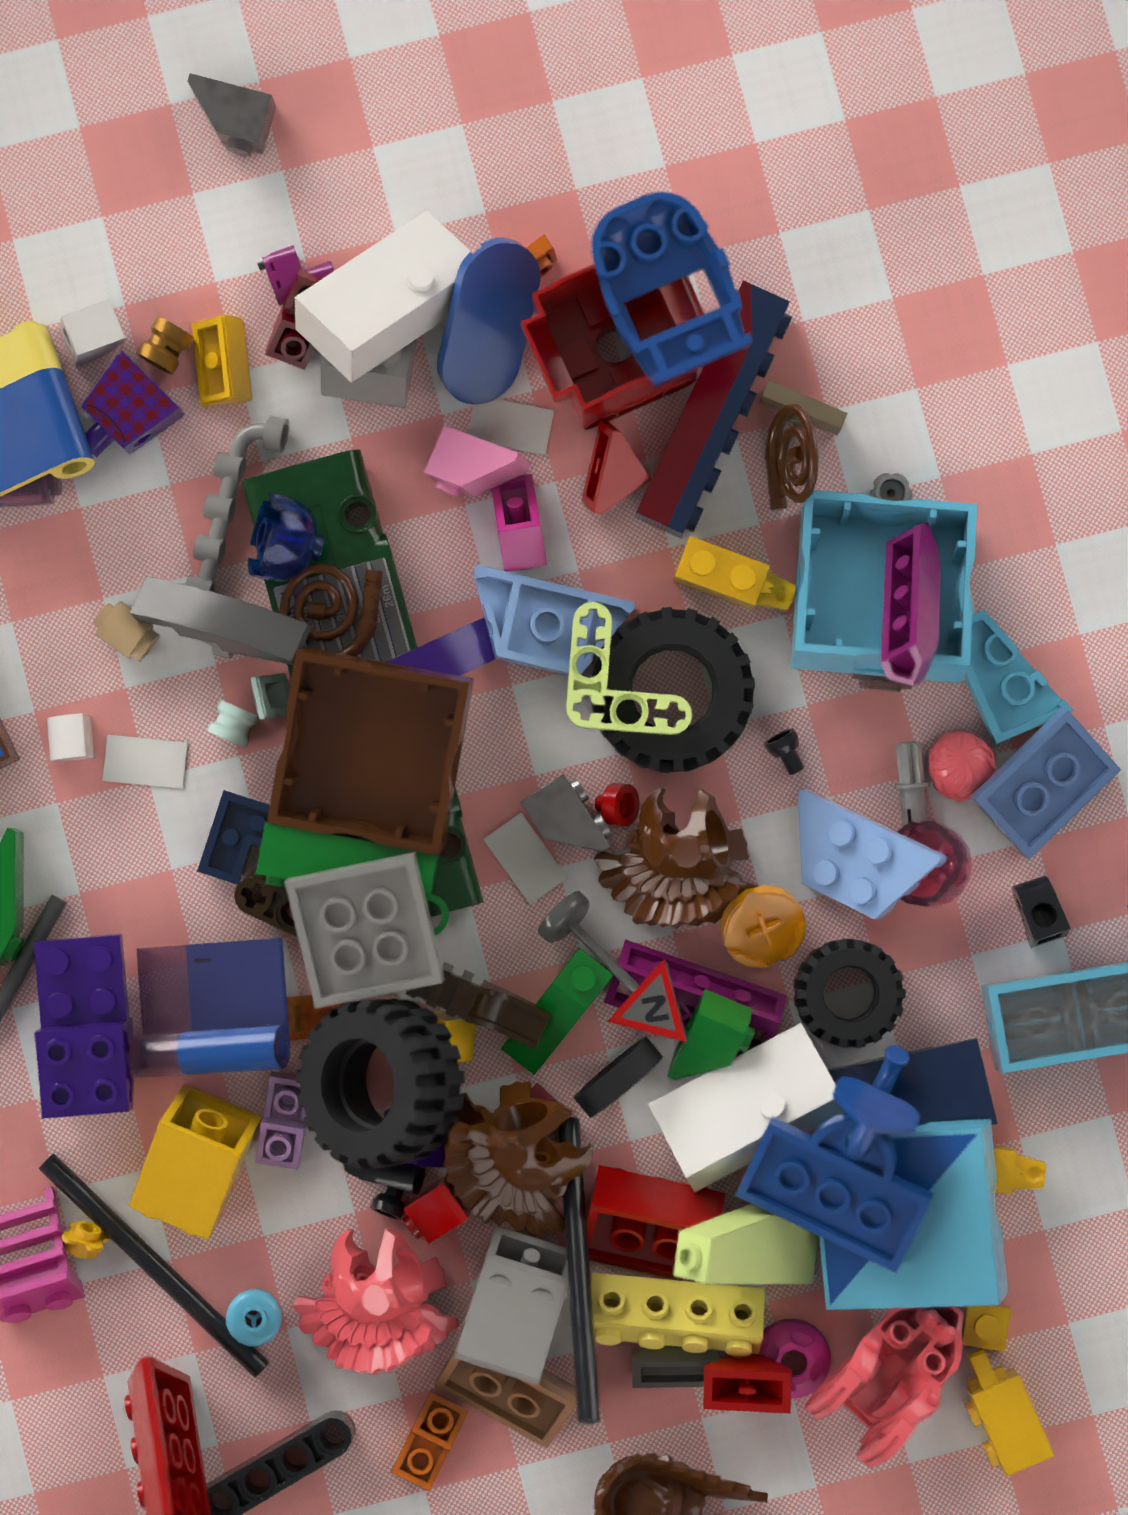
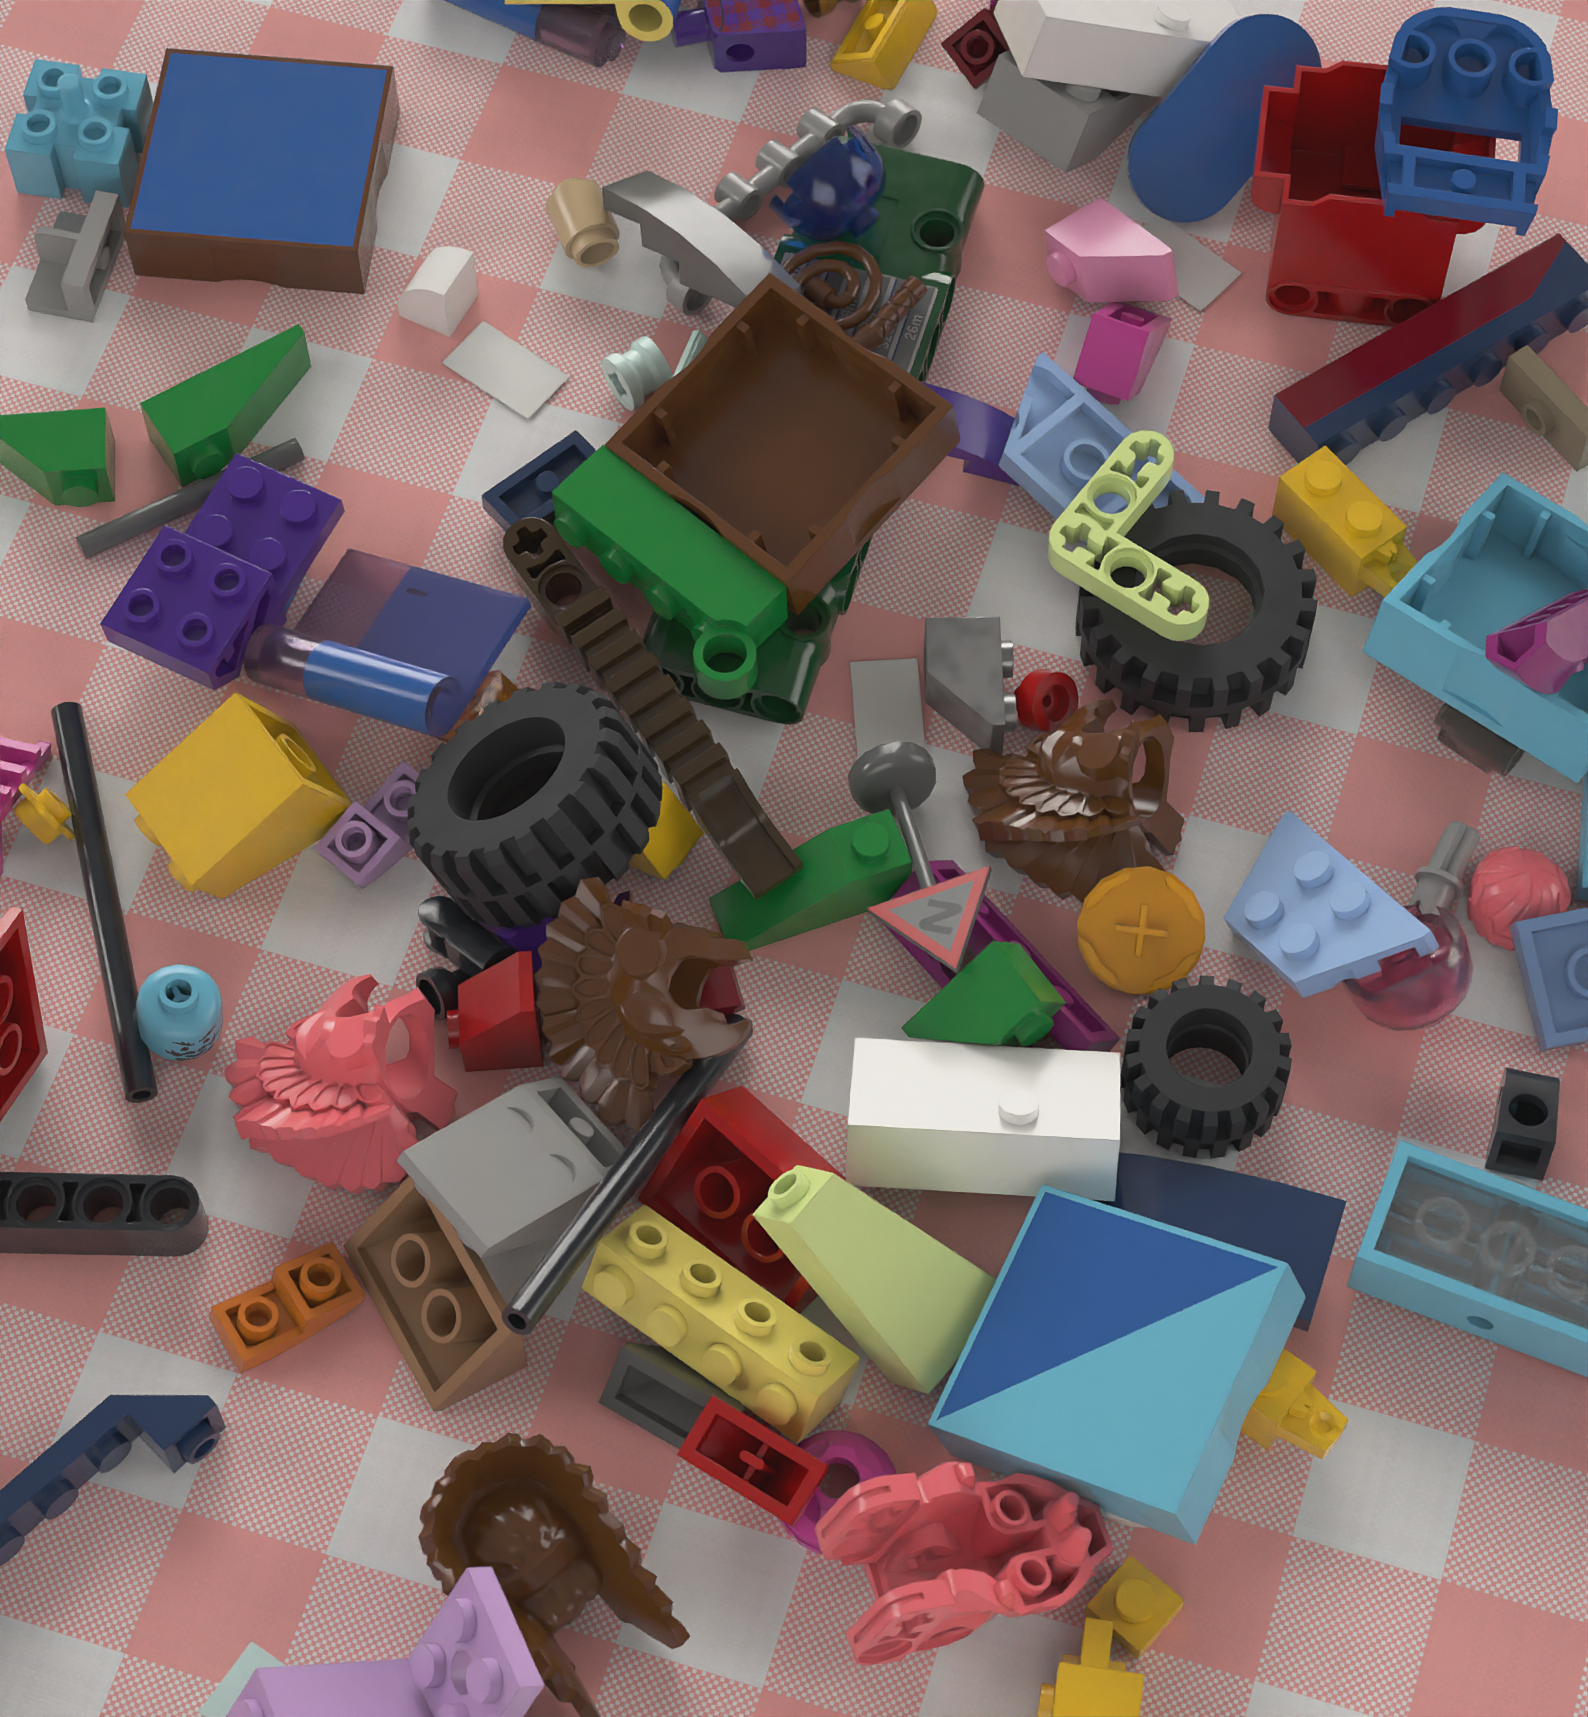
camera: 25 degrees right, 25 degrees down
(365, 930) = (640, 612): light grey plate -> none
(612, 470) = (1278, 347): red slope -> none
(618, 1077) = (831, 958): black tyre -> none
(782, 460) = (1502, 438): reddish brown piece -> none
(784, 746) = (1298, 752): black piece -> none
(841, 1183) = (1056, 1227): blue plate -> none

